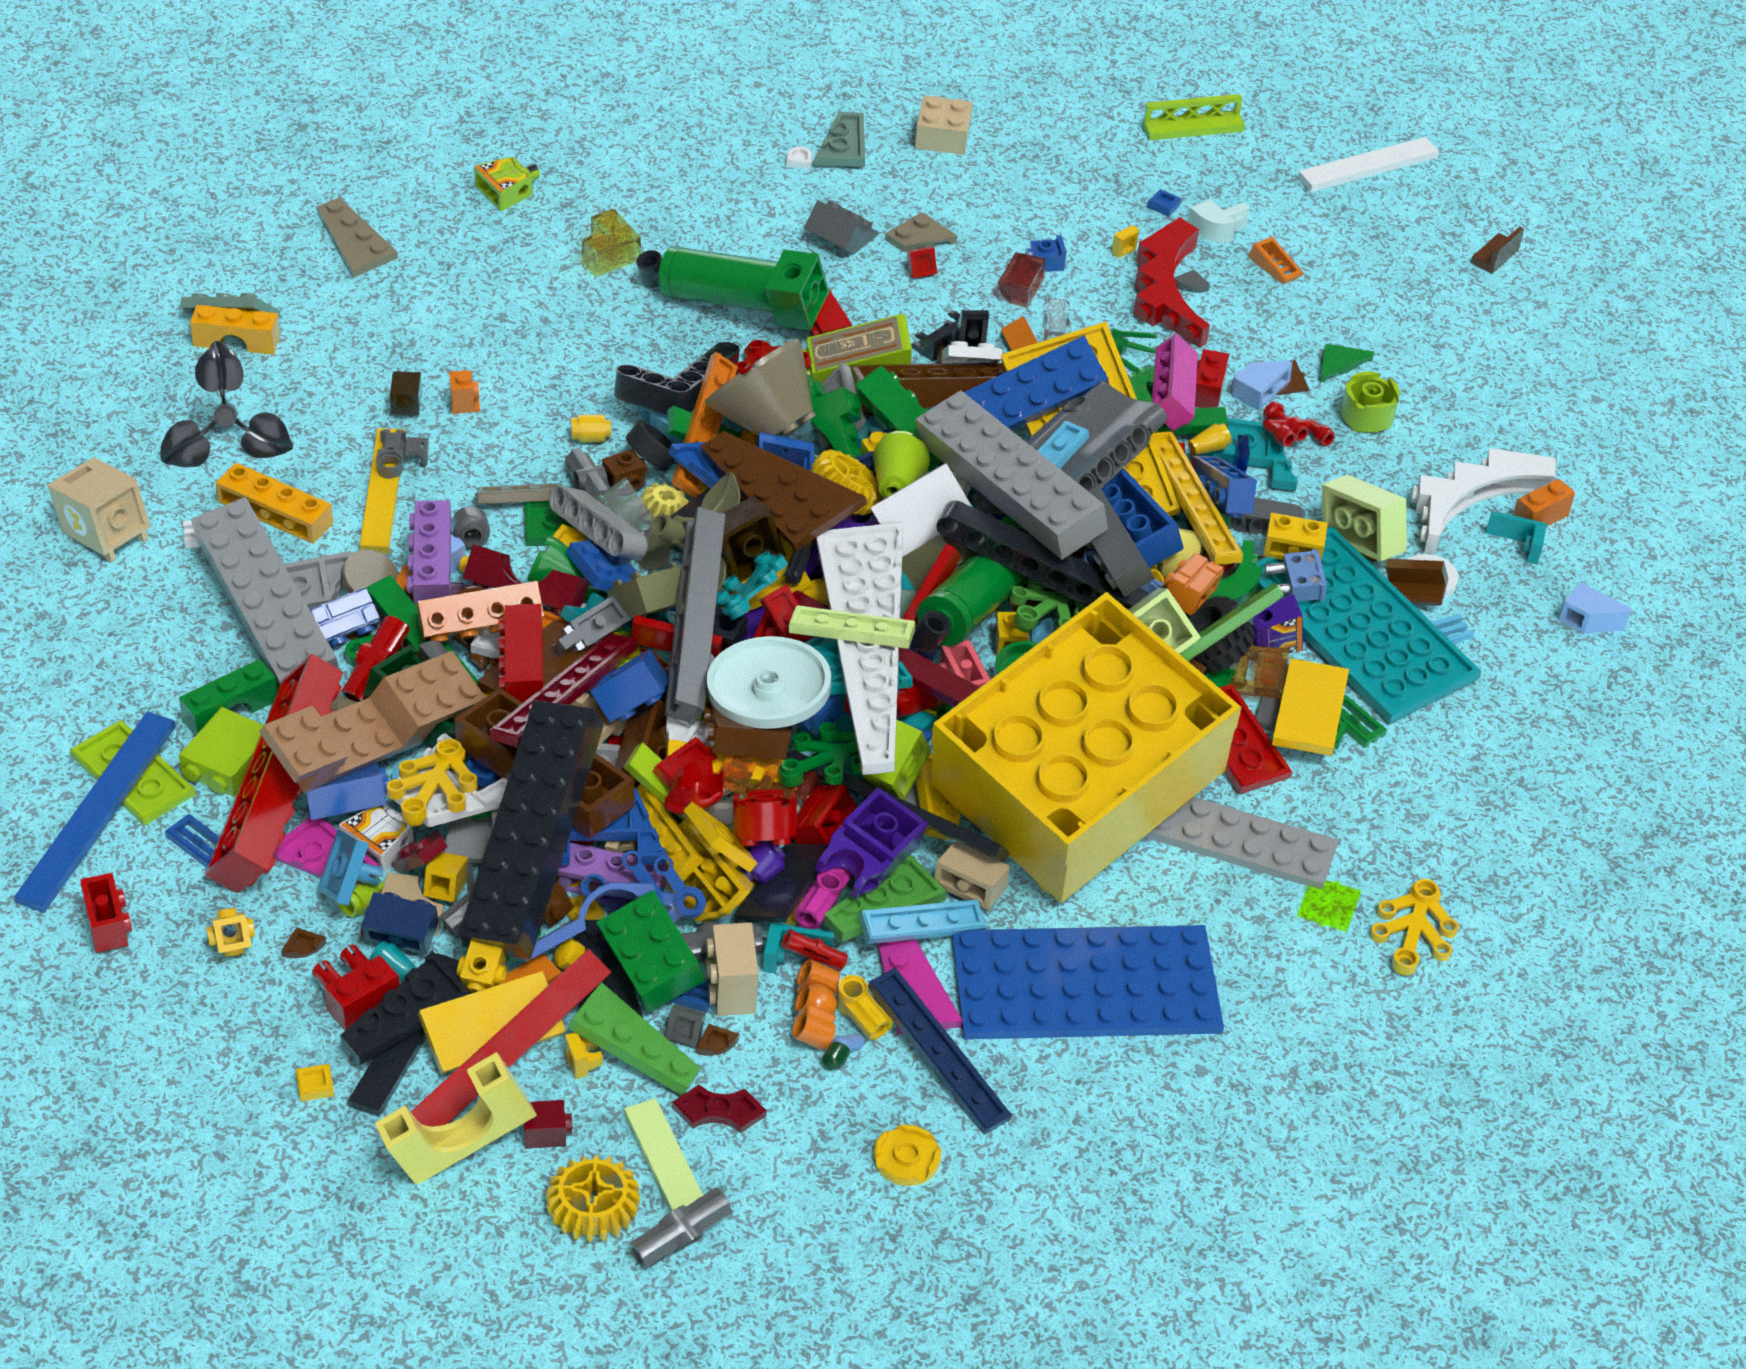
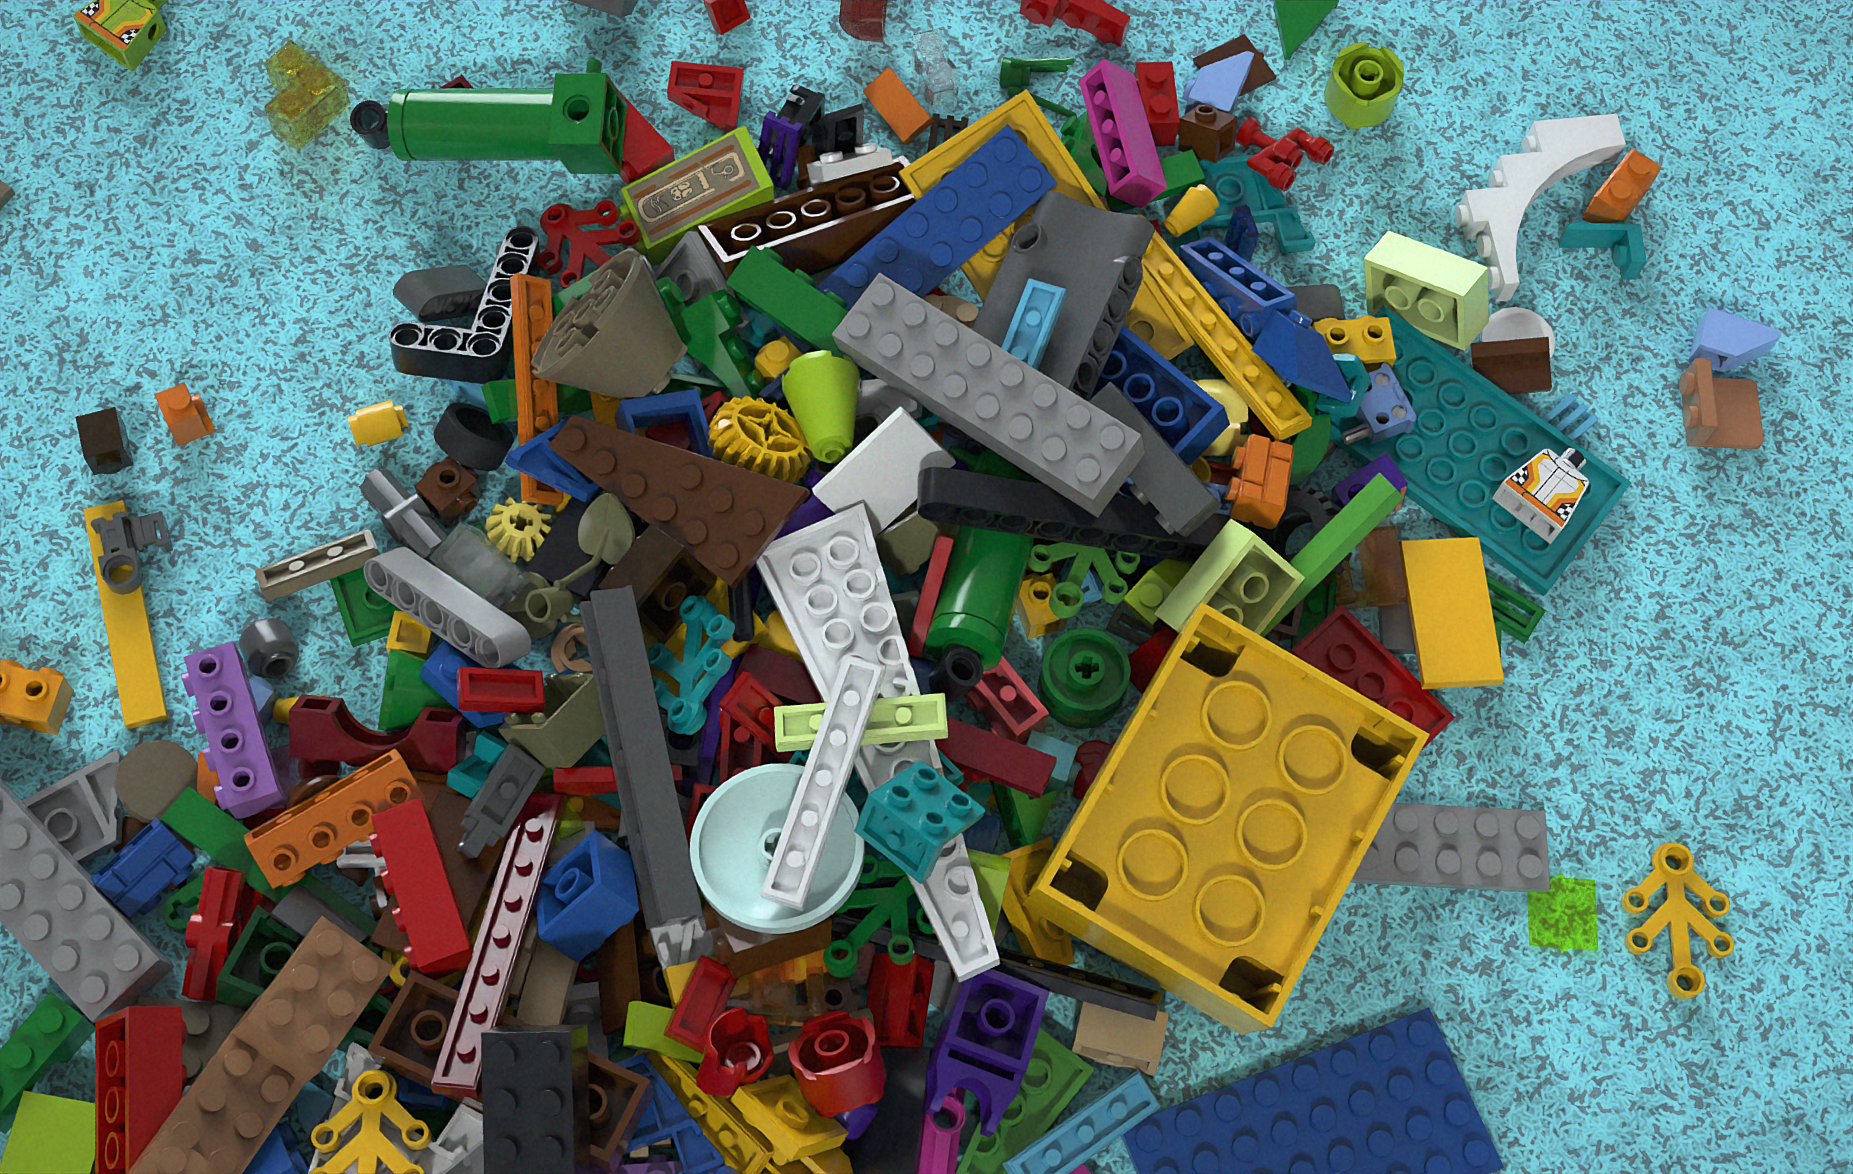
camera: 20 degrees left, 20 degrees up
(613, 564) = (500, 690): none -> red tile
(657, 357) = (440, 292): none -> dark grey beam
(812, 647) = (823, 783): none -> white tile
(860, 672) = (915, 818): none -> teal bracket
(889, 301) = (707, 91): none -> red wing
(931, 340) = (784, 128): none -> dark purple tile
(1241, 401) = (1207, 133): none -> reddish brown brick
(1250, 516) = (1301, 354): none -> blue slope
(1281, 551) = (1357, 382): none -> teal bracket
(1408, 652) = (1545, 491): none -> torso
(1568, 649) = (1719, 409): none -> nougat bracket

